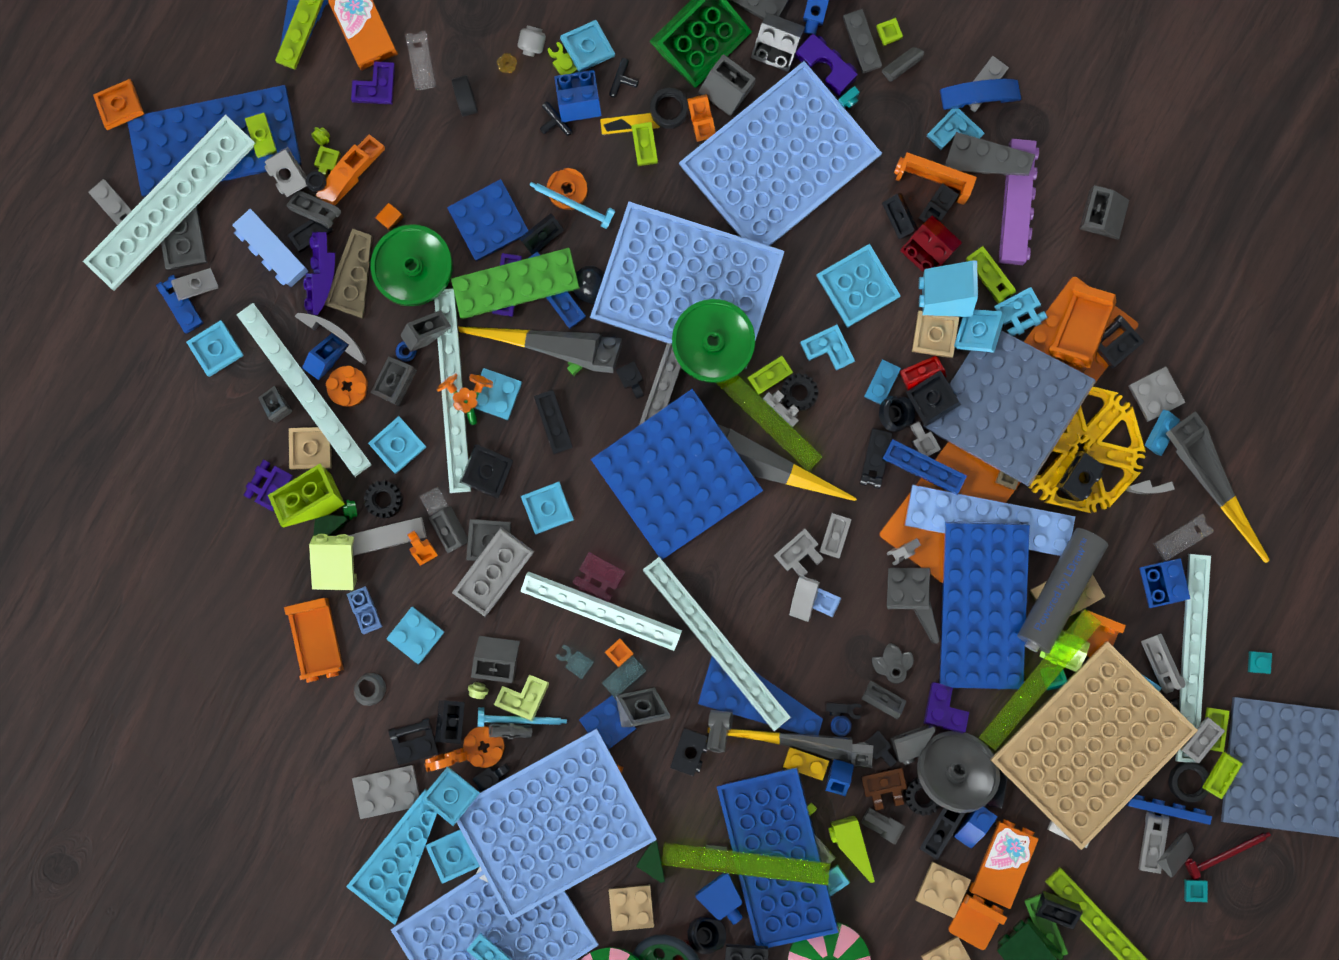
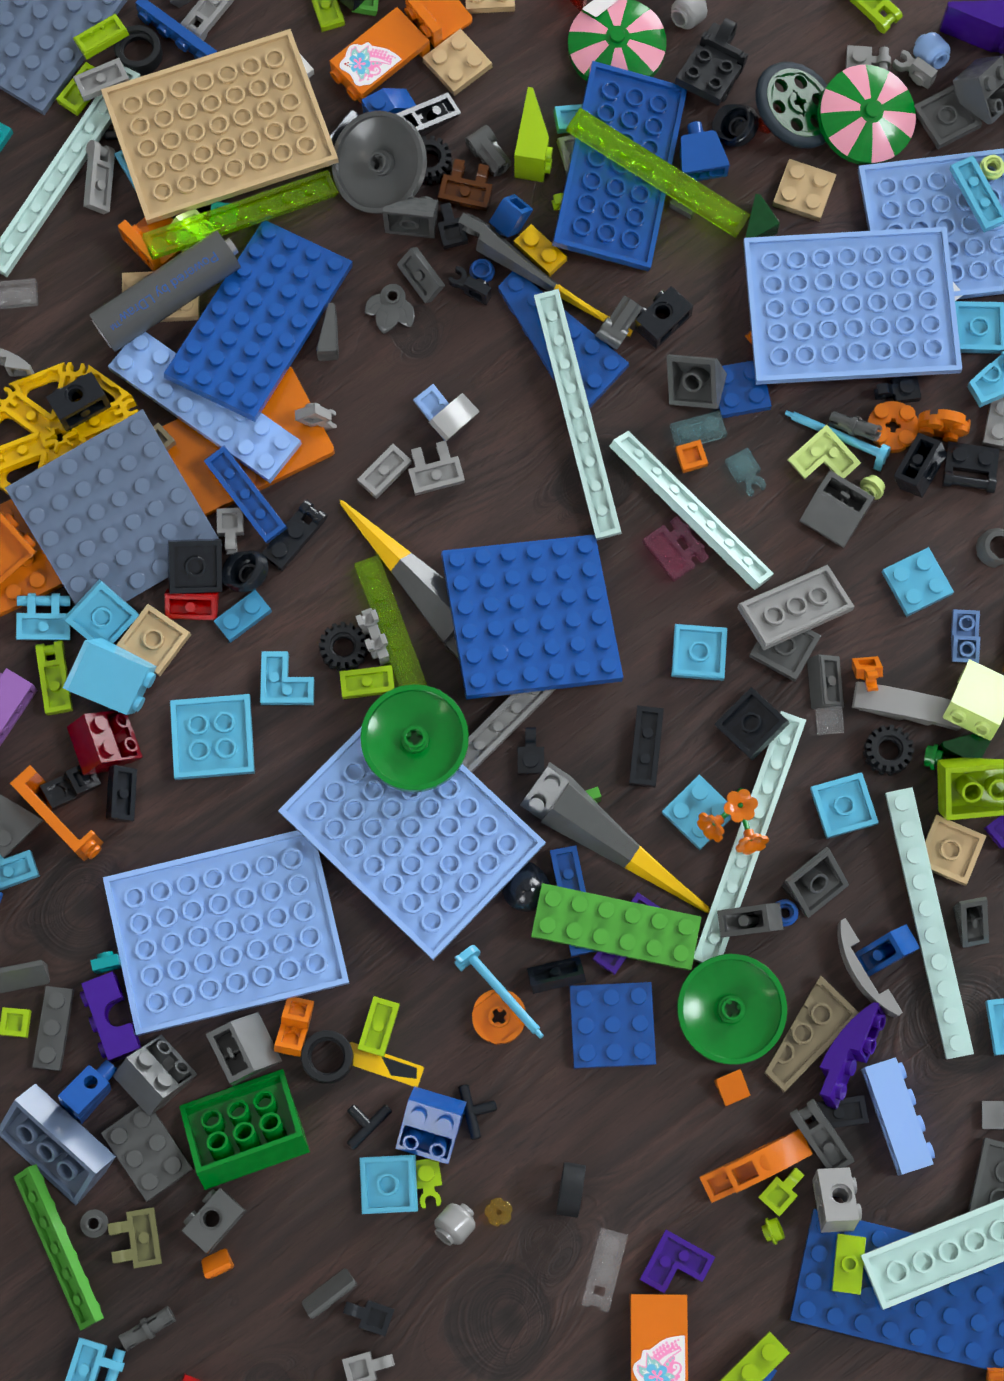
camera: 160 degrees left, 10 degrees down
(316, 181) = (804, 1168): black plate -> none
(335, 384) = (882, 891): orange plate -> none
(450, 796) = (955, 381): medium azure plate -> none
(908, 588) = (332, 375): dark grey plate -> none
(940, 714) = (366, 233): dark purple plate -> none
(1164, 583) = (49, 254): blue slope -> none

